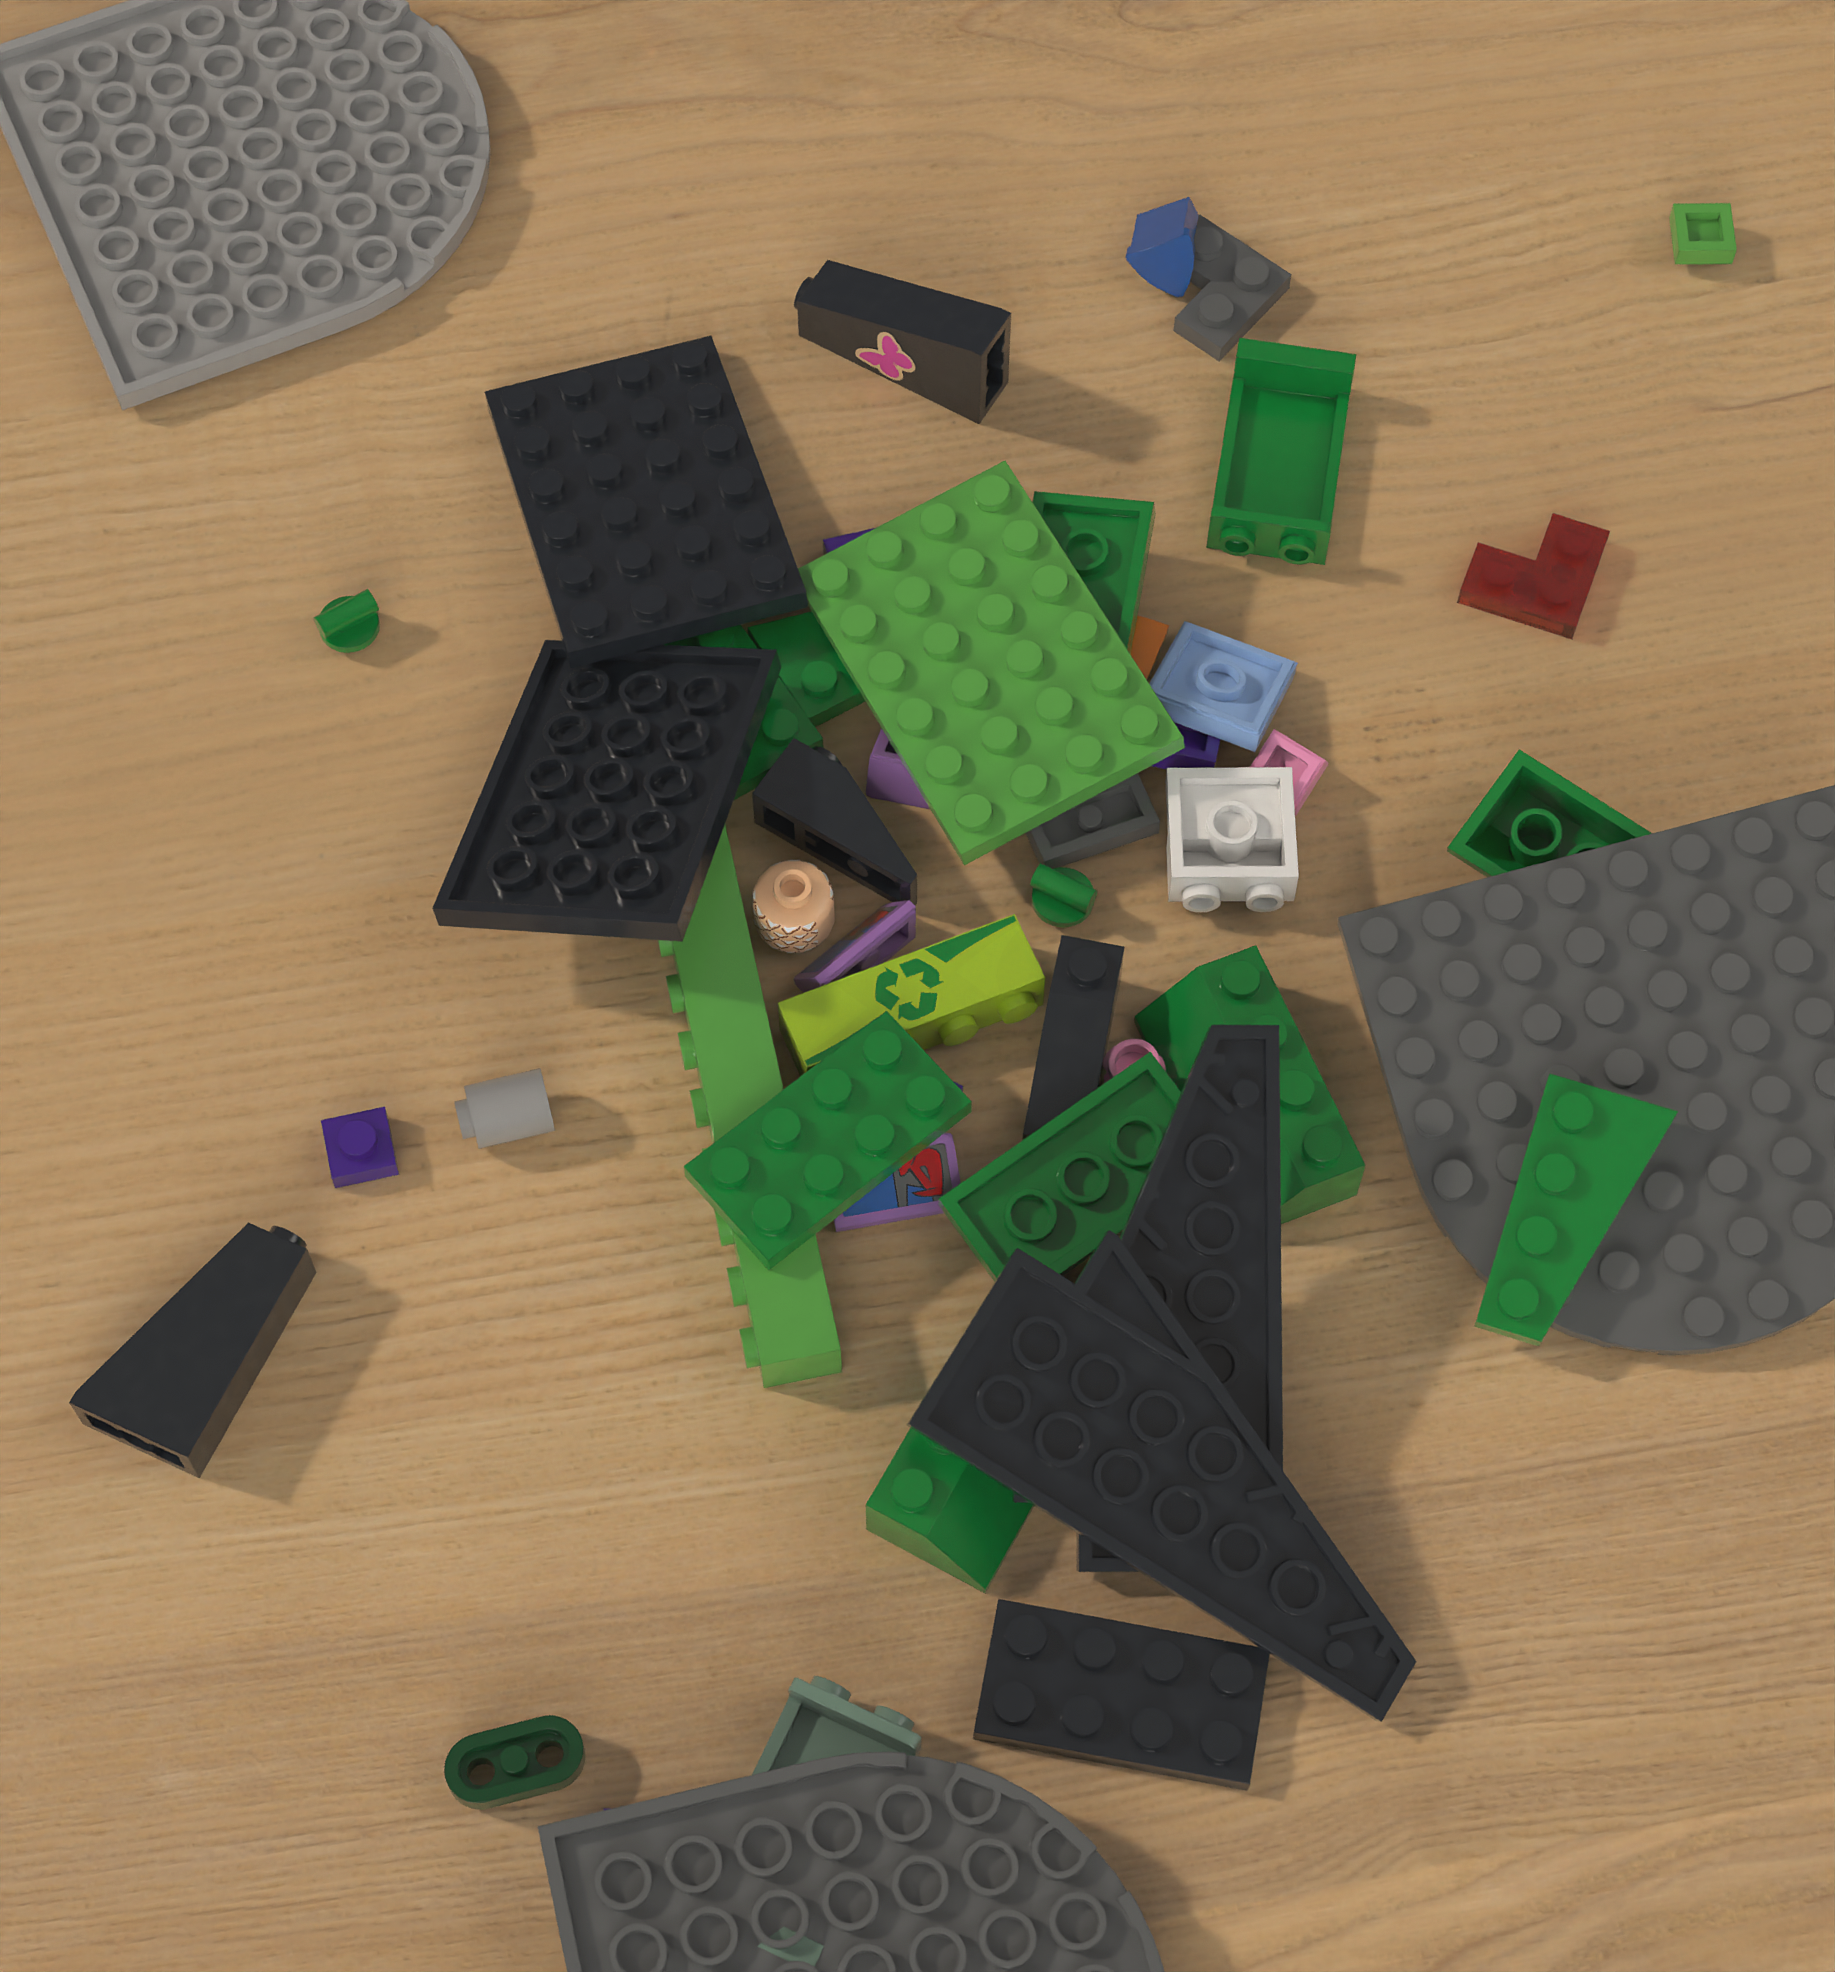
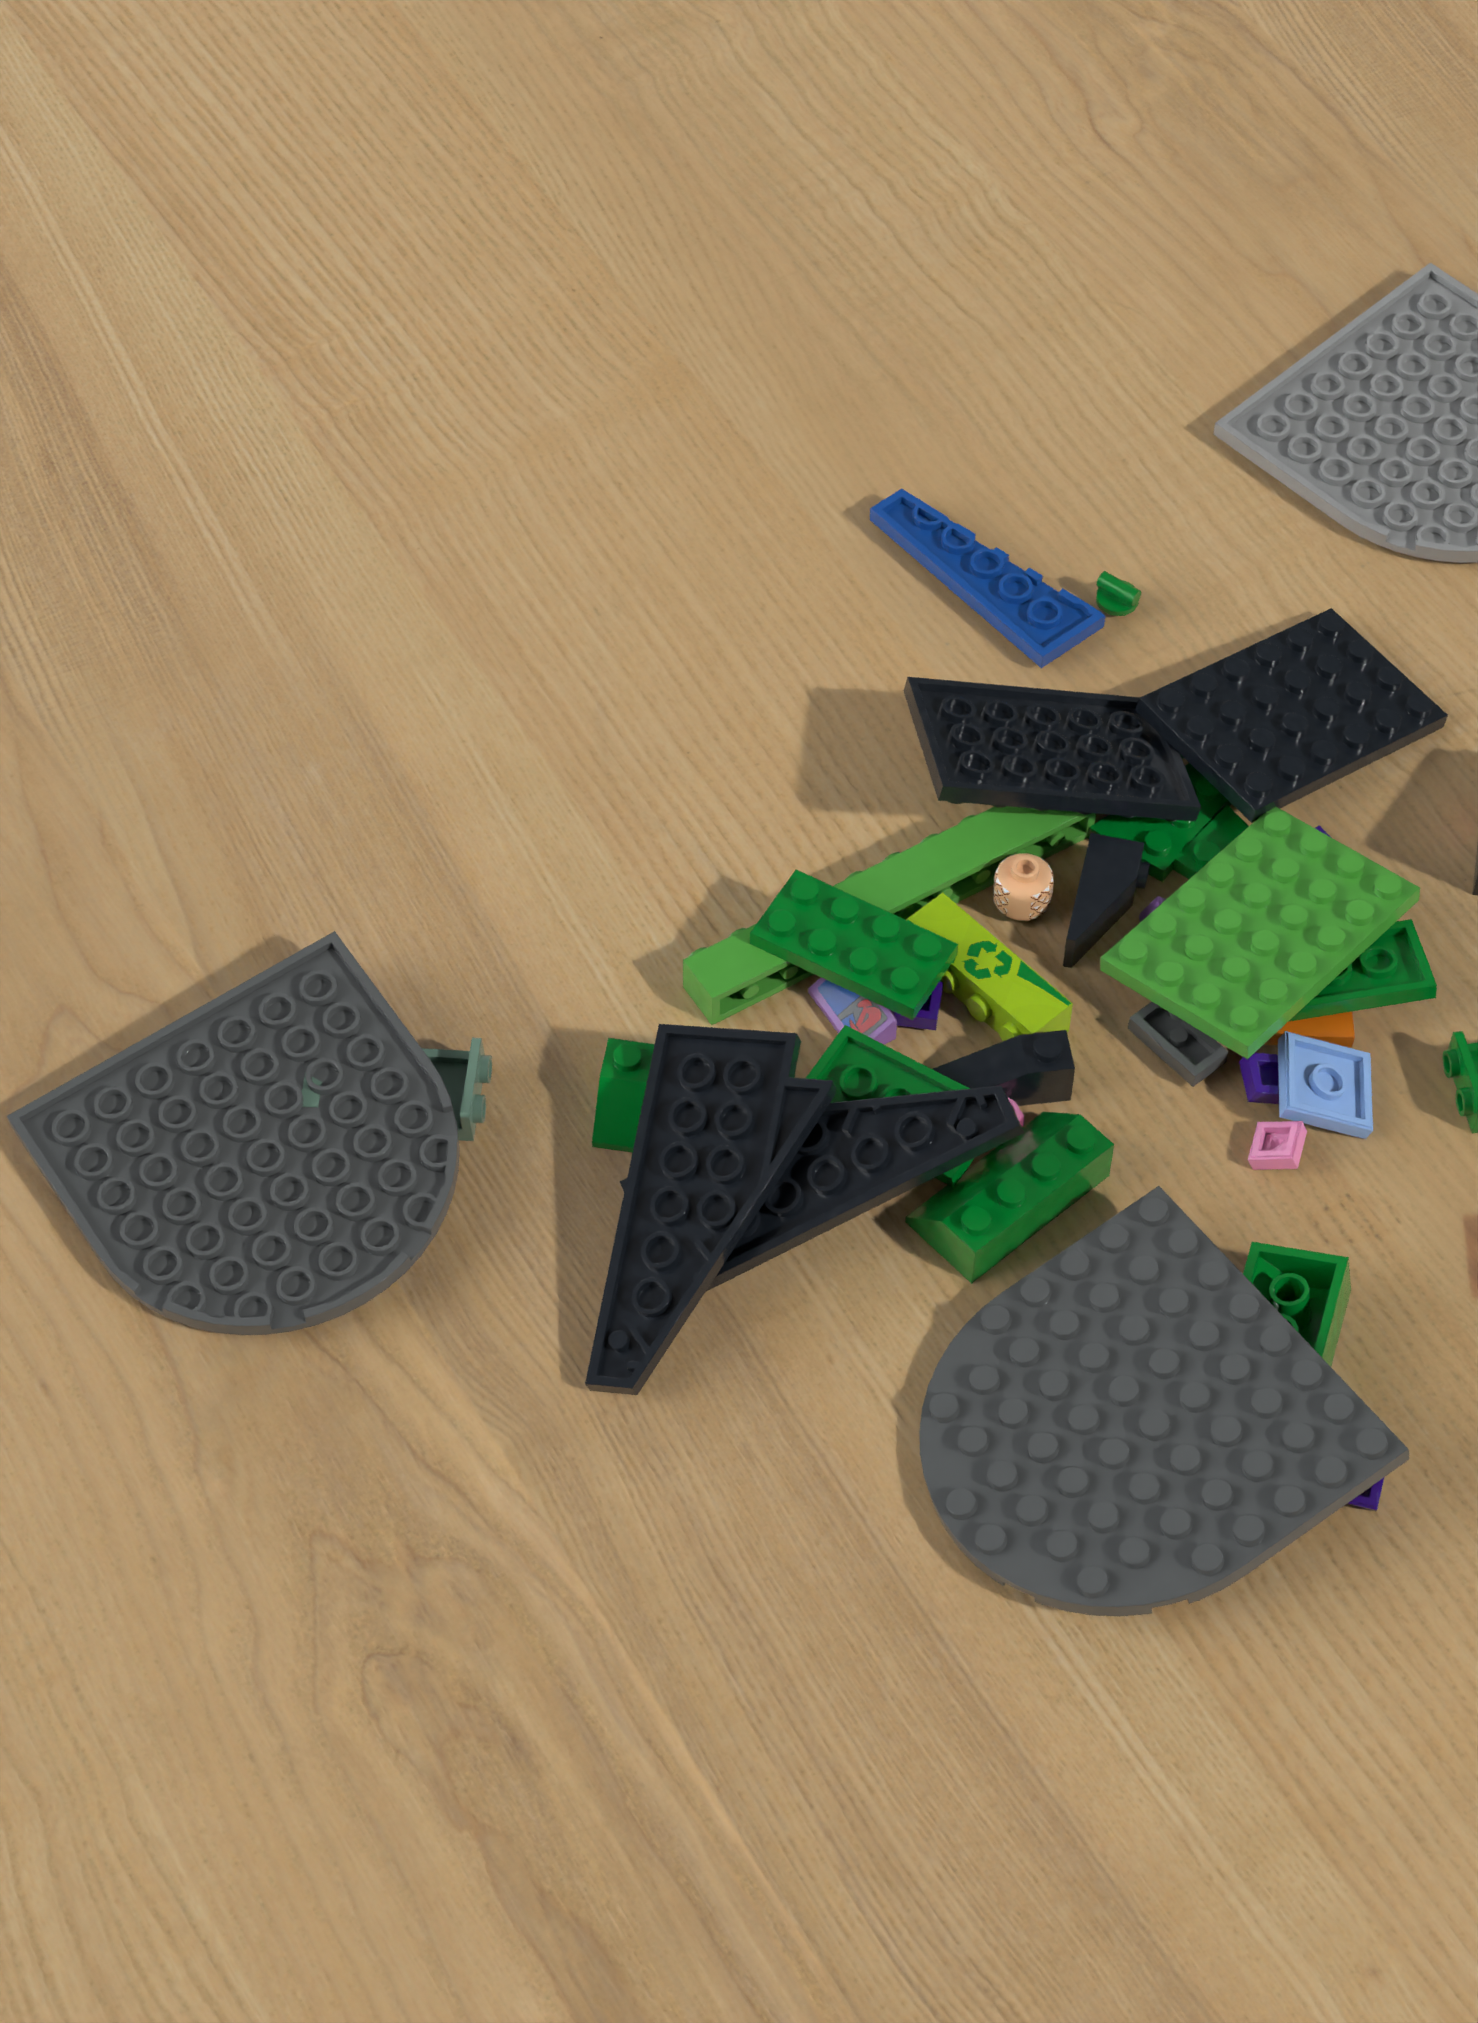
camera: 70 degrees right, 10 degrees down
(201, 1352) = (580, 688): black slope -> none
(294, 747) = (1007, 597): none -> blue wing
(359, 1147) = (751, 725): dark purple plate -> none
(505, 1109) = (808, 785): light grey brick -> none
(514, 1756) = (383, 930): dark green plate -> none
(863, 947) = (1030, 947): medium lavender slope -> none
(1061, 895) = (1113, 1041): green plate -> none
(1122, 1694) = (549, 1237): black plate -> none
(1231, 837) = (1202, 1120): white plate -> none
(1570, 1187) = (1020, 1381): green wing -> none

